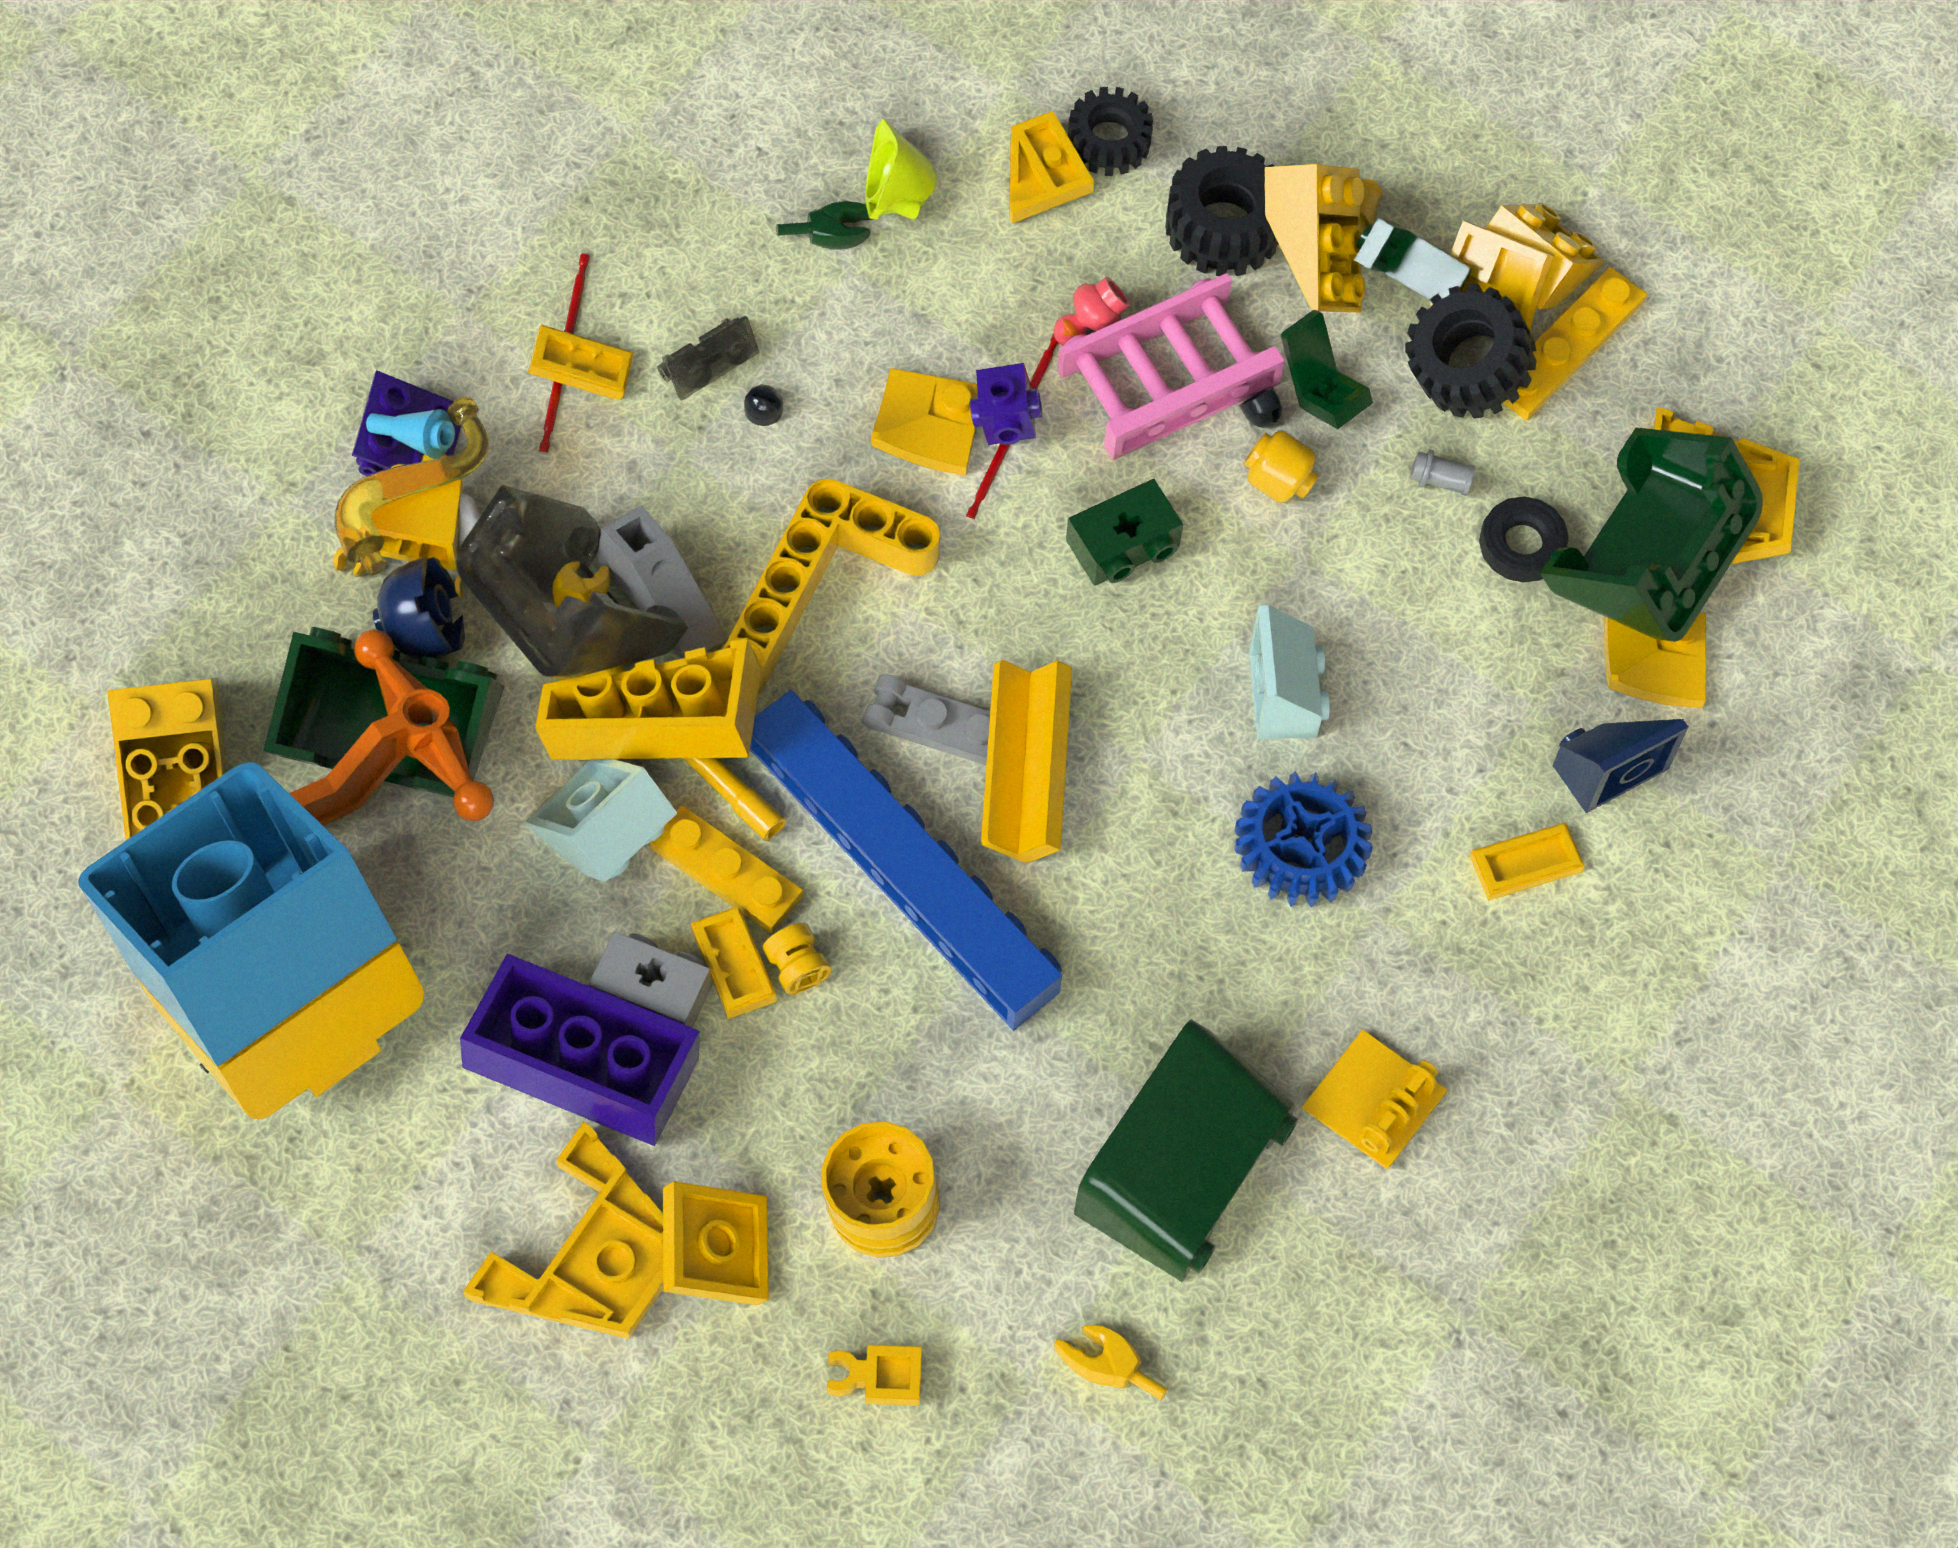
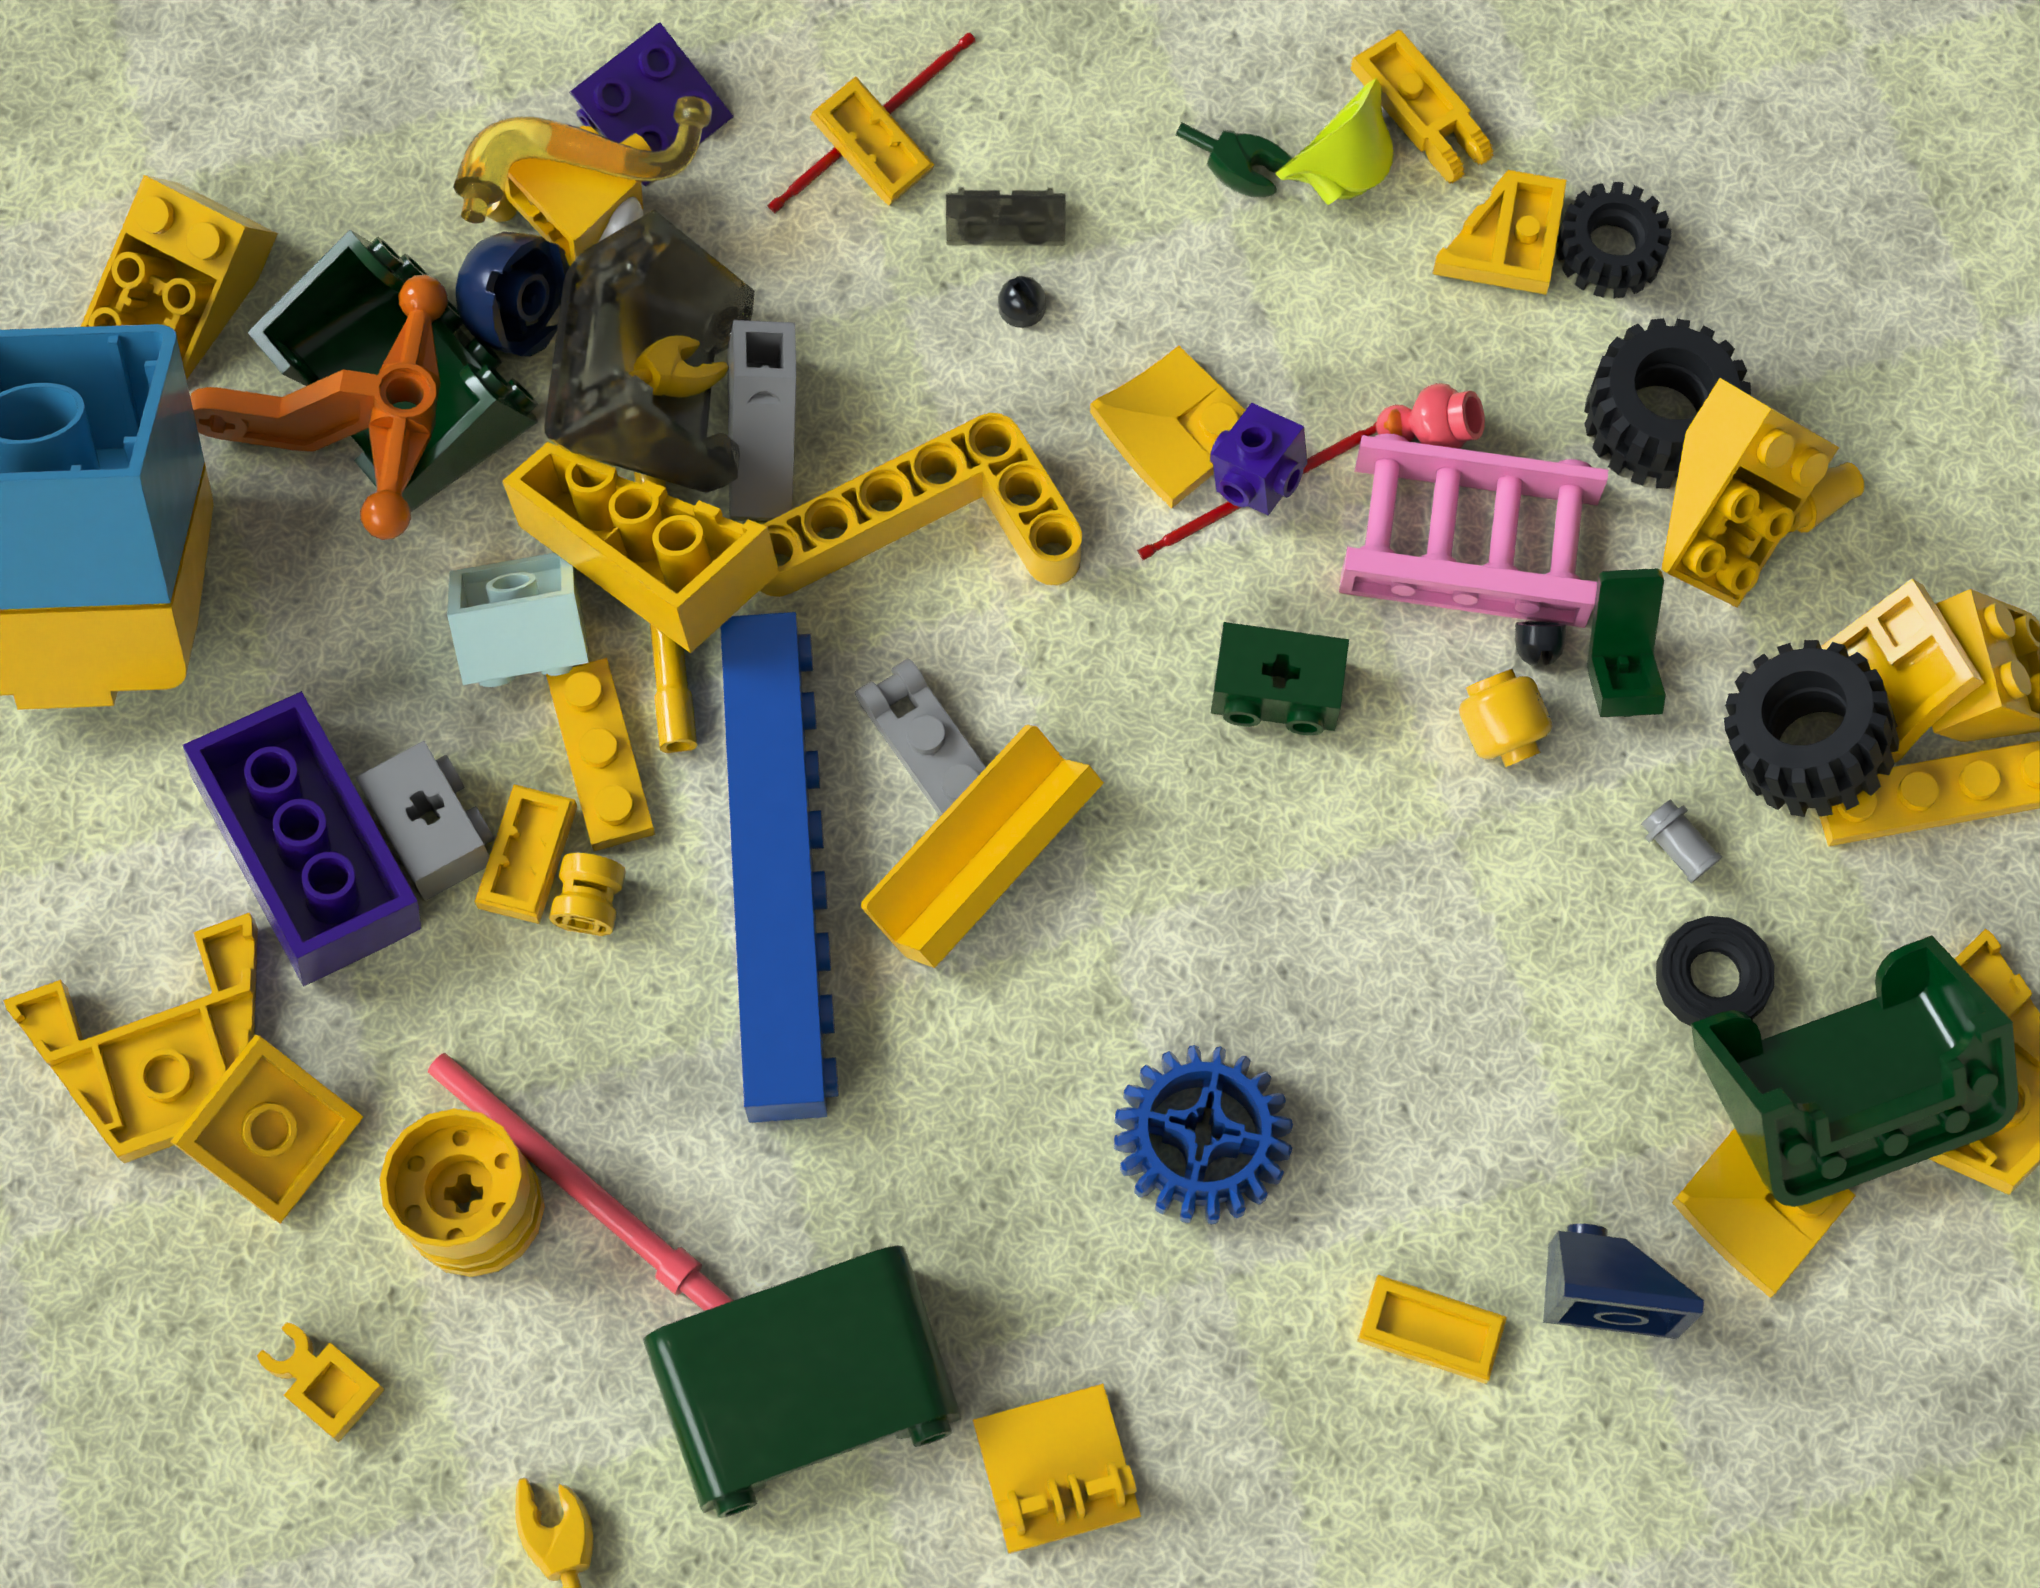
camera: 40 degrees right, 5 degrees up
(424, 431) = (640, 111): medium azure cone -> none
(922, 118) = (1422, 103): none -> yellow hinge
(1046, 1147) = (674, 1268): none -> coral bar
(1286, 677) = (1322, 946): light aqua slope -> none
(1410, 259) = (1822, 581): bracket -> none

